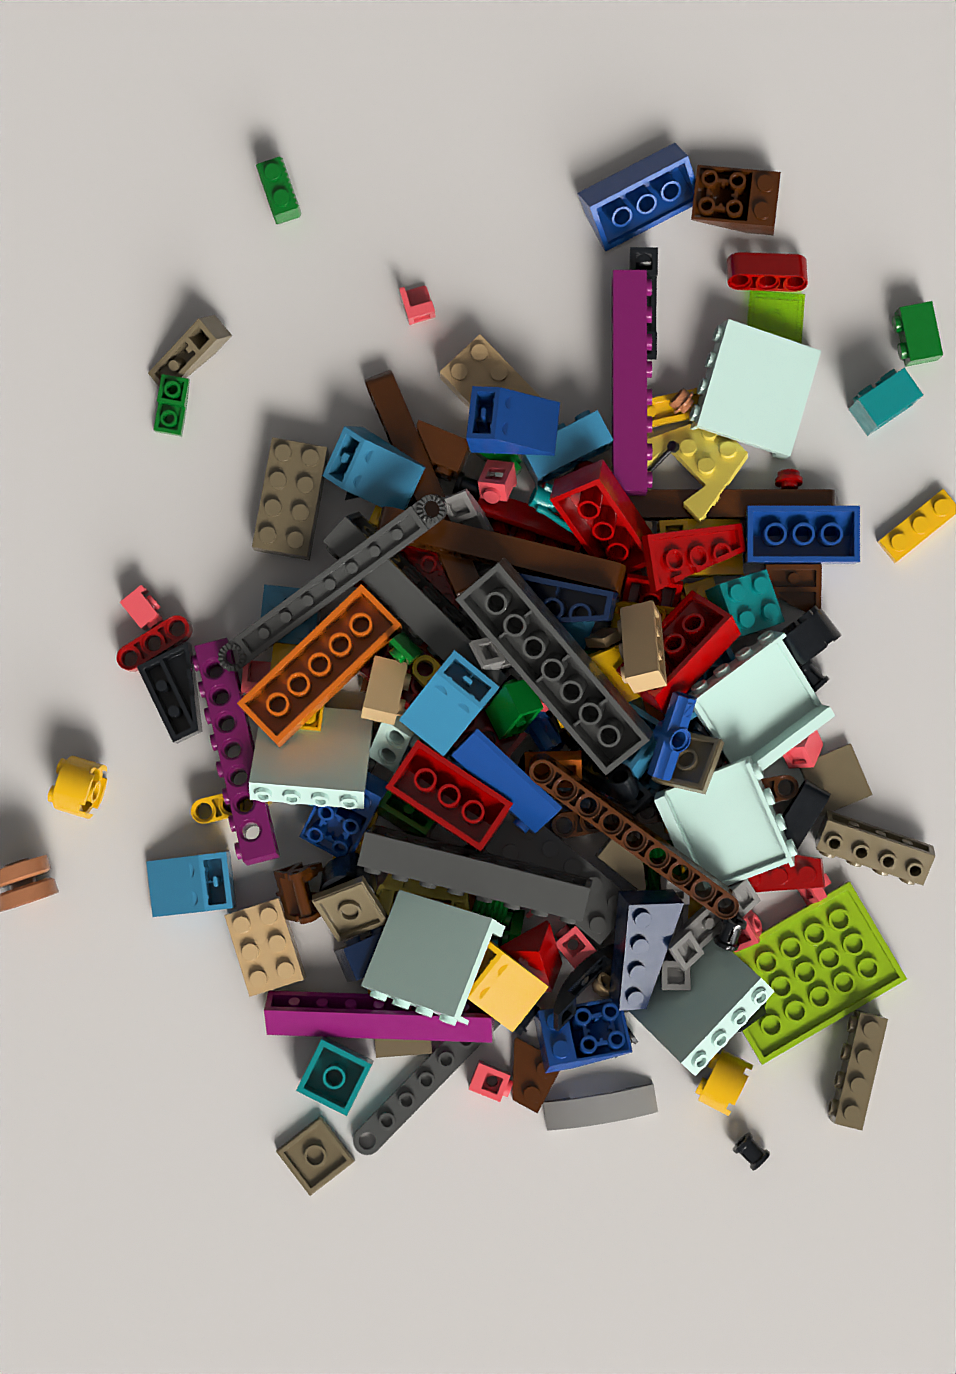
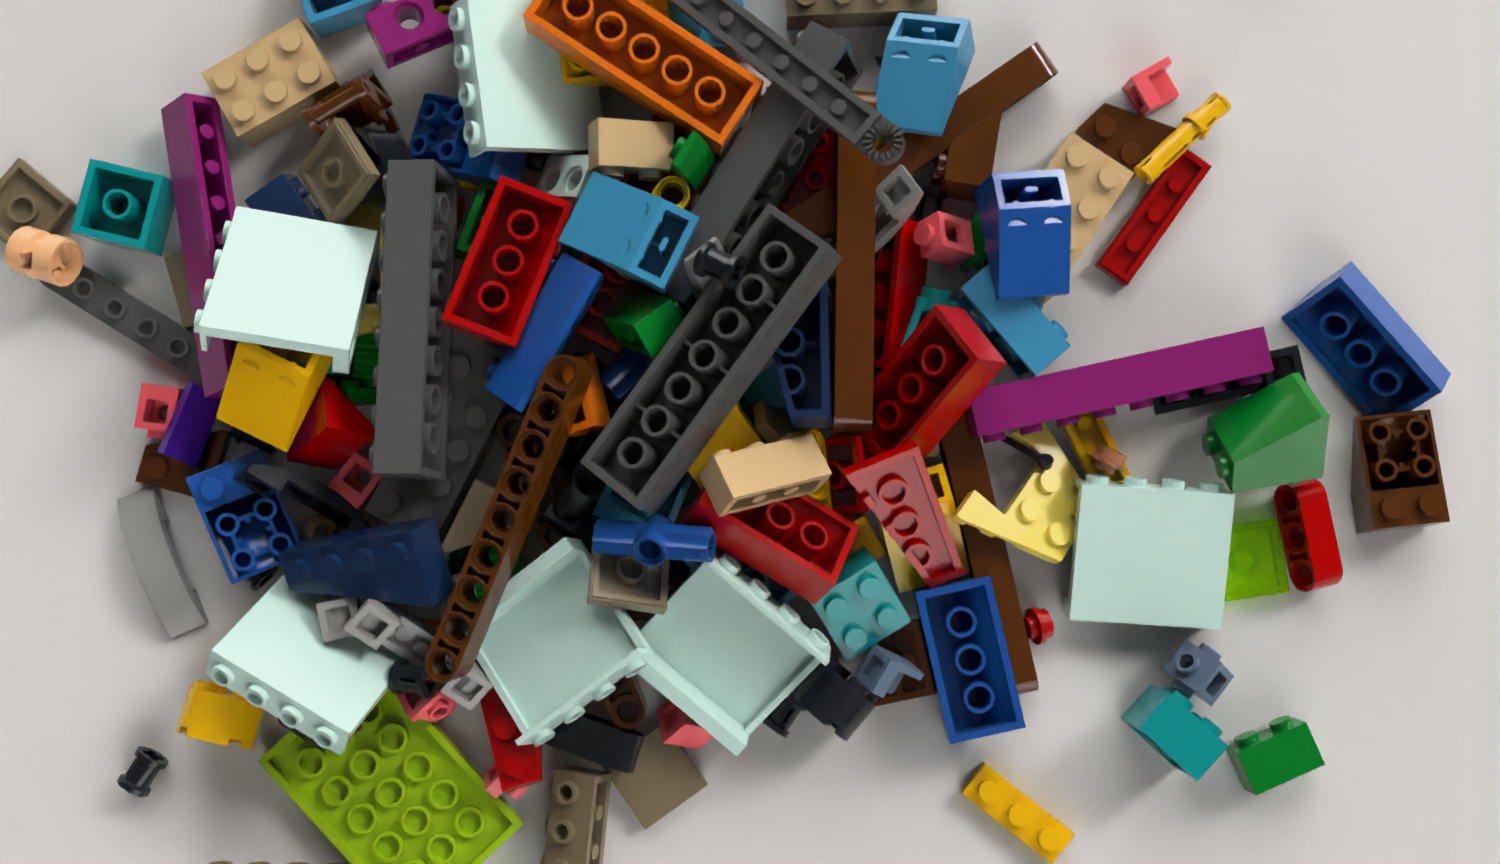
camera: 75 degrees right, 0 degrees up
(359, 1141) = (44, 256): none -> light nougat wheel
(448, 332) = (1123, 134): none -> reddish brown wing
(461, 294) = (1193, 127): none -> yellow pin
(493, 643) = (719, 265): none -> black bush
(507, 1060) = (190, 425): none -> dark purple tile
(510, 325) = (1152, 218): none -> red tile
(692, 285) = (1269, 437): none -> green slope
(797, 597) = (884, 670): none -> sand blue panel
(847, 374) = (1198, 672): none -> sand blue brick

